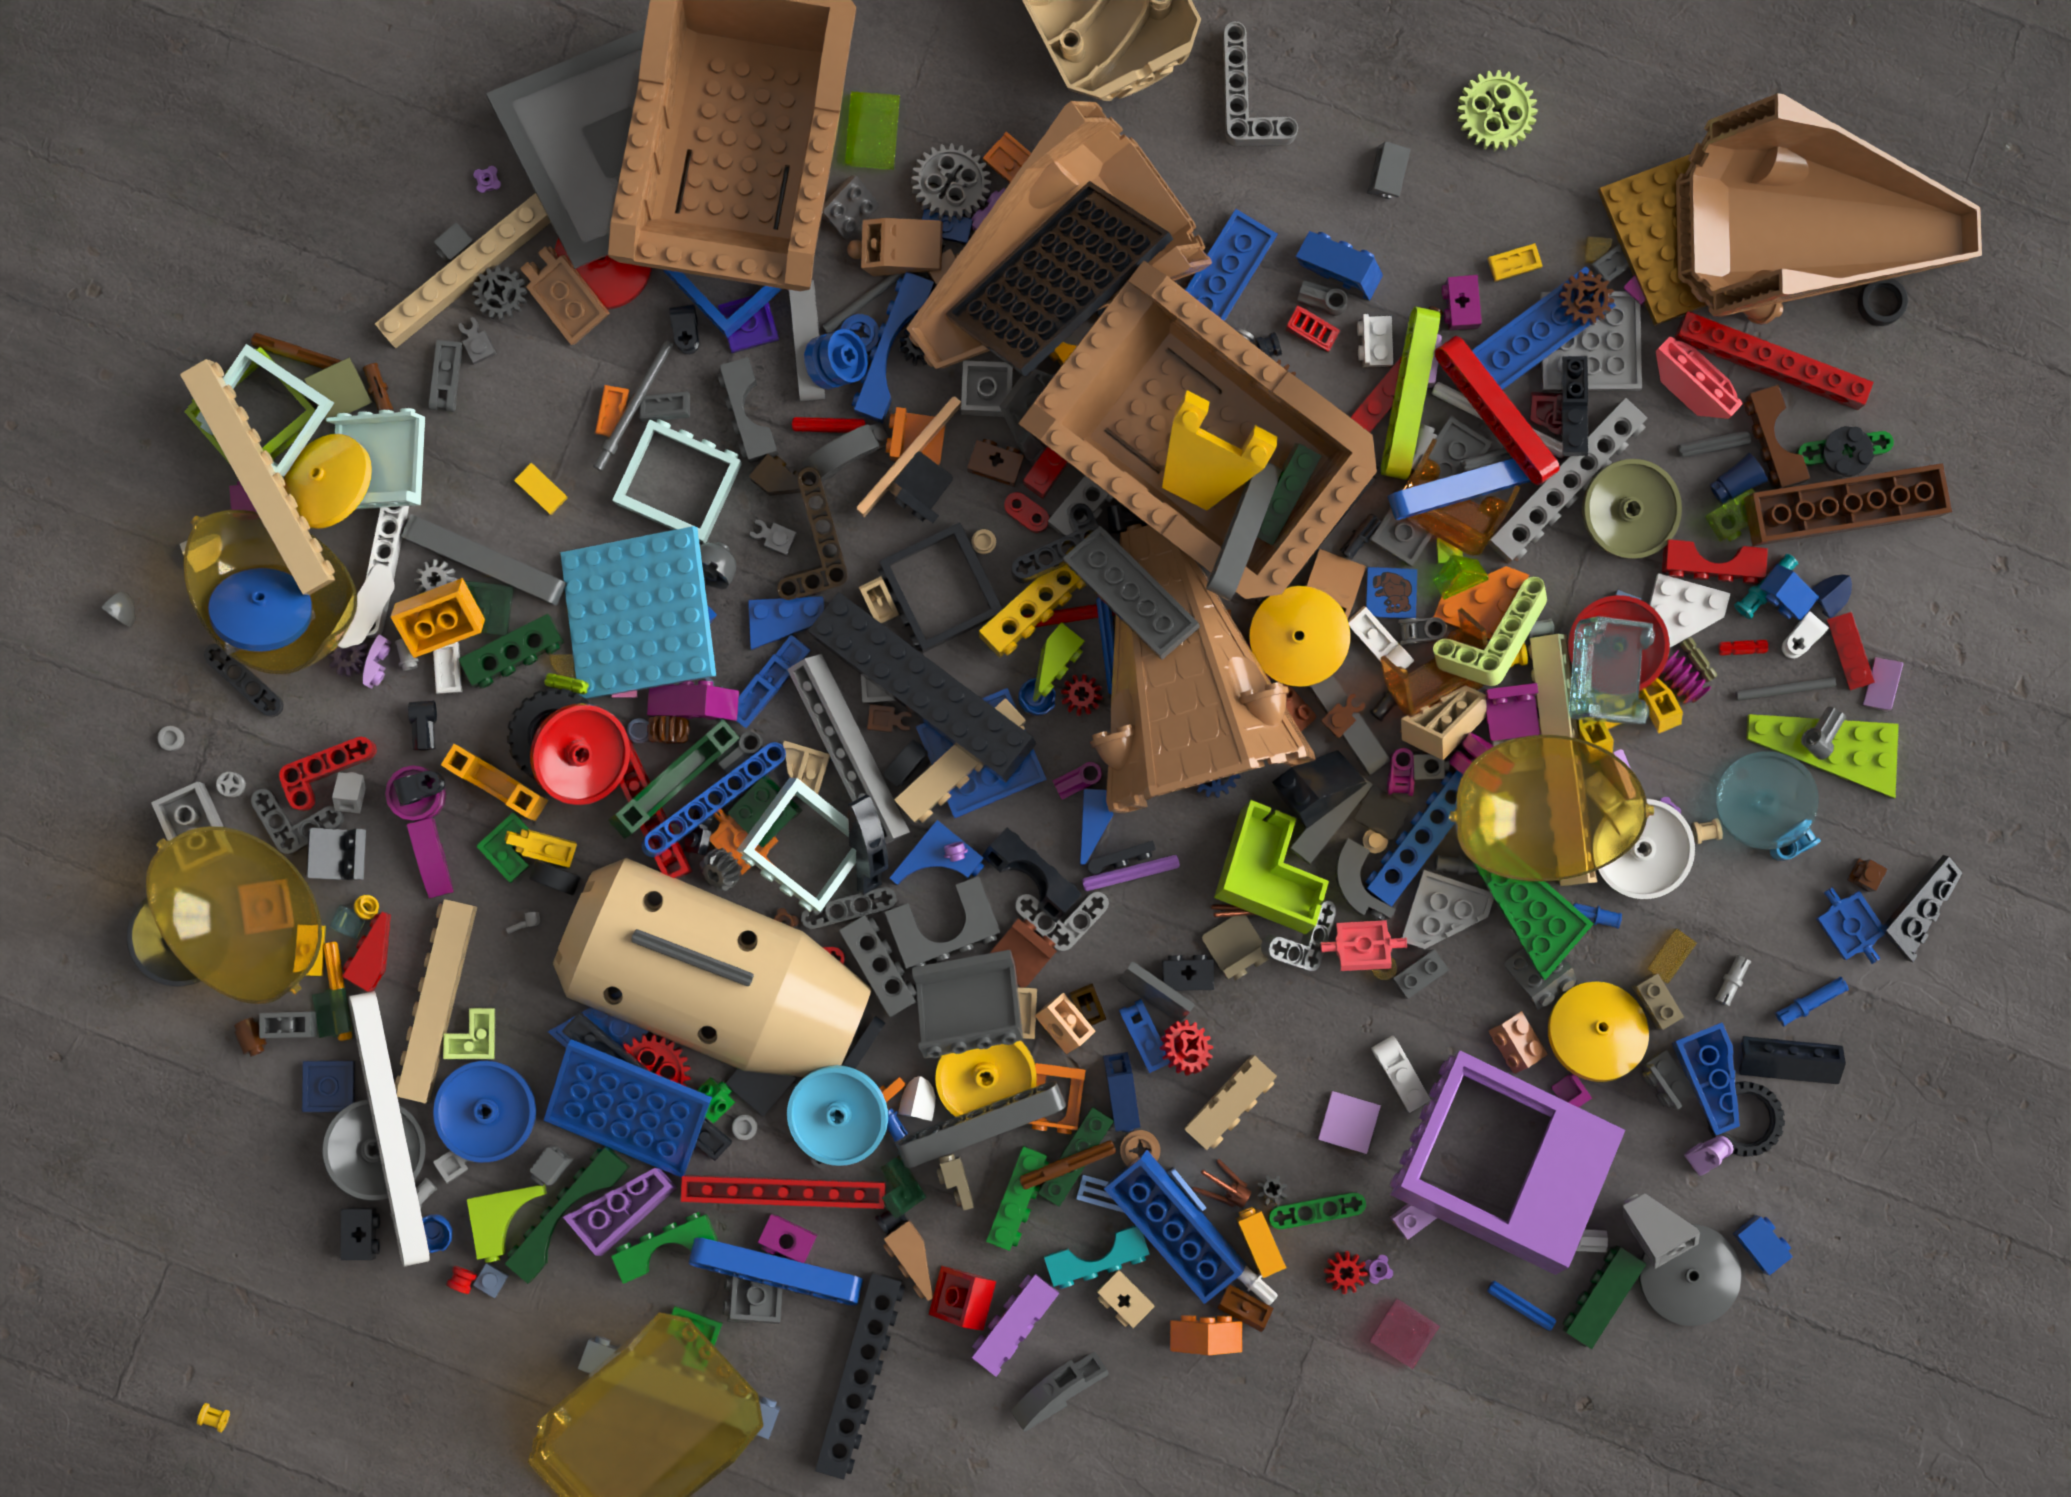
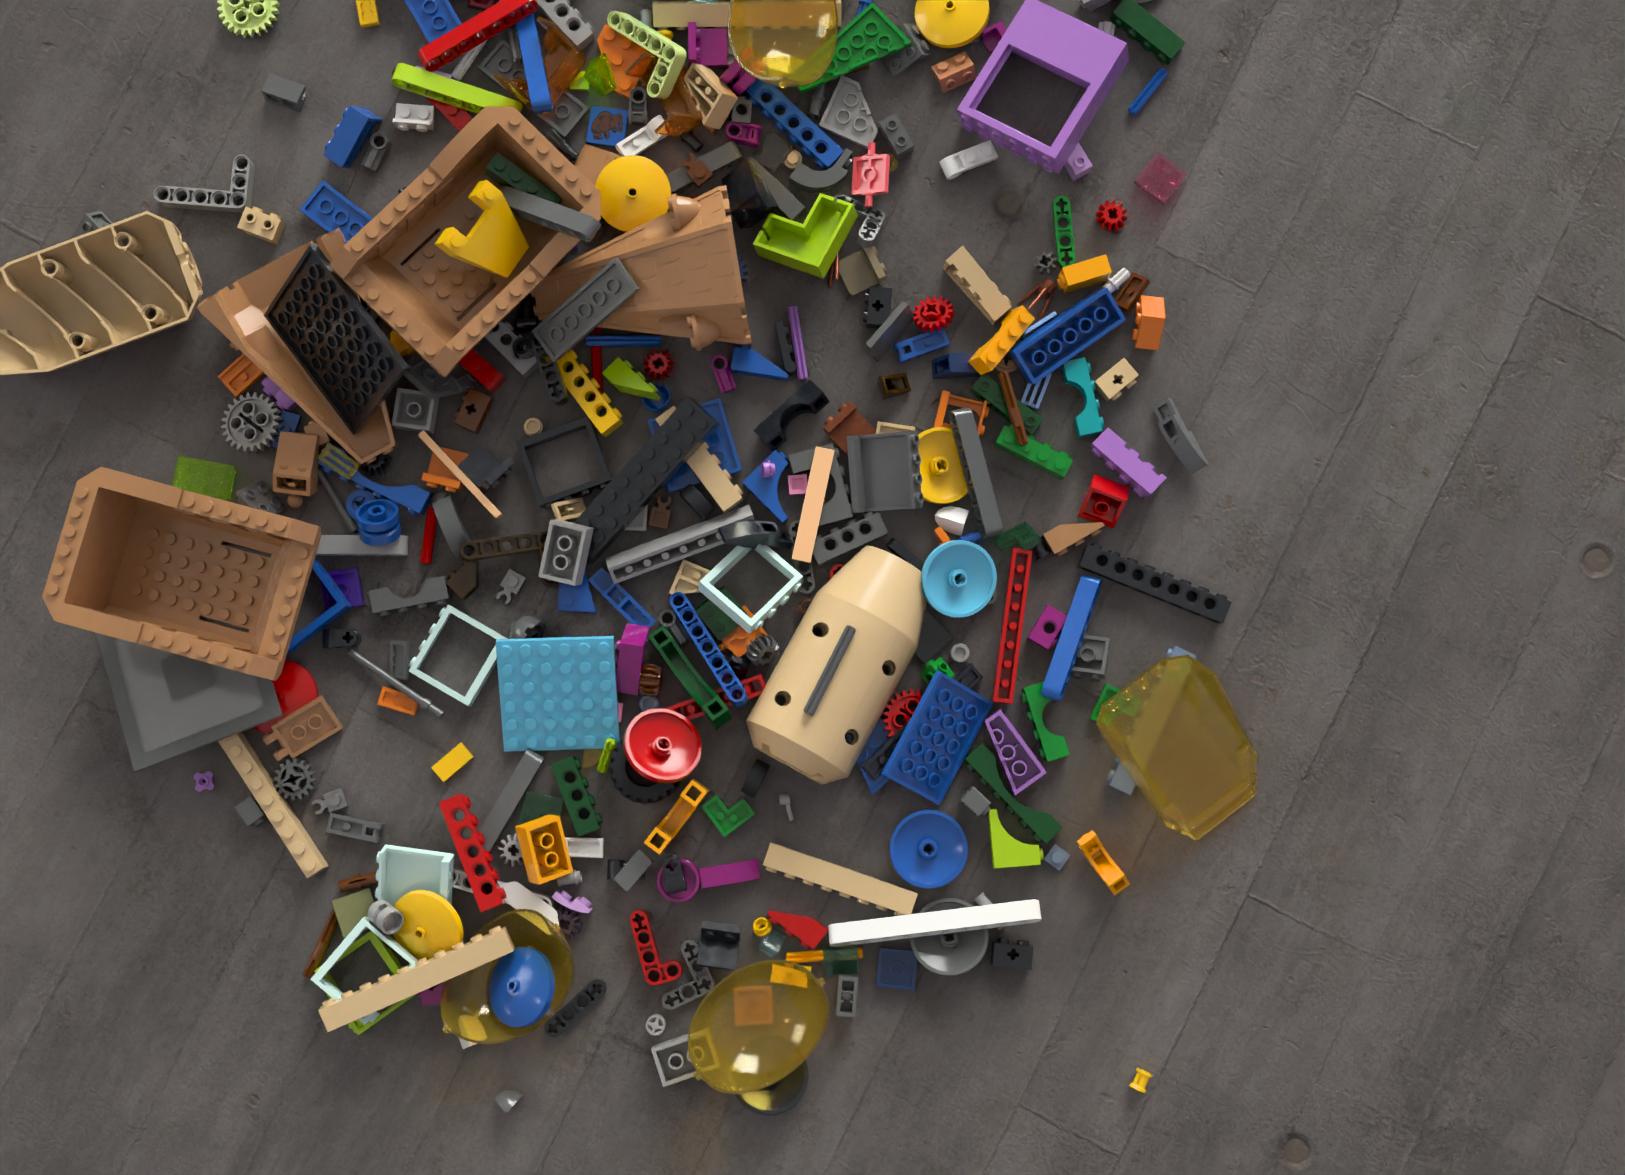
camera: 80 degrees left, 0 degrees up
(170, 738) = (614, 1069): light grey tile -> none
(248, 1037) = (853, 1026): reddish brown brick -> none
(333, 428) = (385, 917): none -> light grey wheel
(349, 792) = (672, 932): light grey brick -> none
(410, 526) = (449, 809): none -> red brick
(421, 734) = (633, 870): none -> dark grey slope
(437, 1232) = (1016, 892): blue hair -> none
(451, 1166) = (967, 879): light grey plate -> none
(461, 1279) = (1054, 879): red wheel -> none
(478, 1042) = (874, 848): yellowish green brick -> none
(486, 1341) = (1102, 862): none -> light orange arch
(542, 846) = (730, 785): yellow hinge -> none
(818, 602) = (565, 552): none -> light grey brick
(915, 915) = (813, 504): none -> light nougat tile
(919, 280) = (326, 452): none -> clear yellow tile
(943, 893) = (797, 484): none -> bright pink plate
(953, 1175) = (1012, 496): dark tan plate -> none
(1025, 513) = (514, 392): red plate -> none
(1065, 1023) = (906, 402): light nougat brick -> none
(1068, 926) = (833, 395): light grey beam -> none
(1141, 1131) = (994, 350): none -> light orange arch
(1209, 163) = (261, 225): none -> tan brick
(1308, 316) = (396, 178): red slope -> none
(1349, 1122) = (1000, 202): lavender tile -> none
(1381, 1262) = (1111, 187): medium lavender plate -> none
(1424, 438) = (493, 87): light grey cone -> none
(1468, 290) = (385, 43): magenta brick -> none

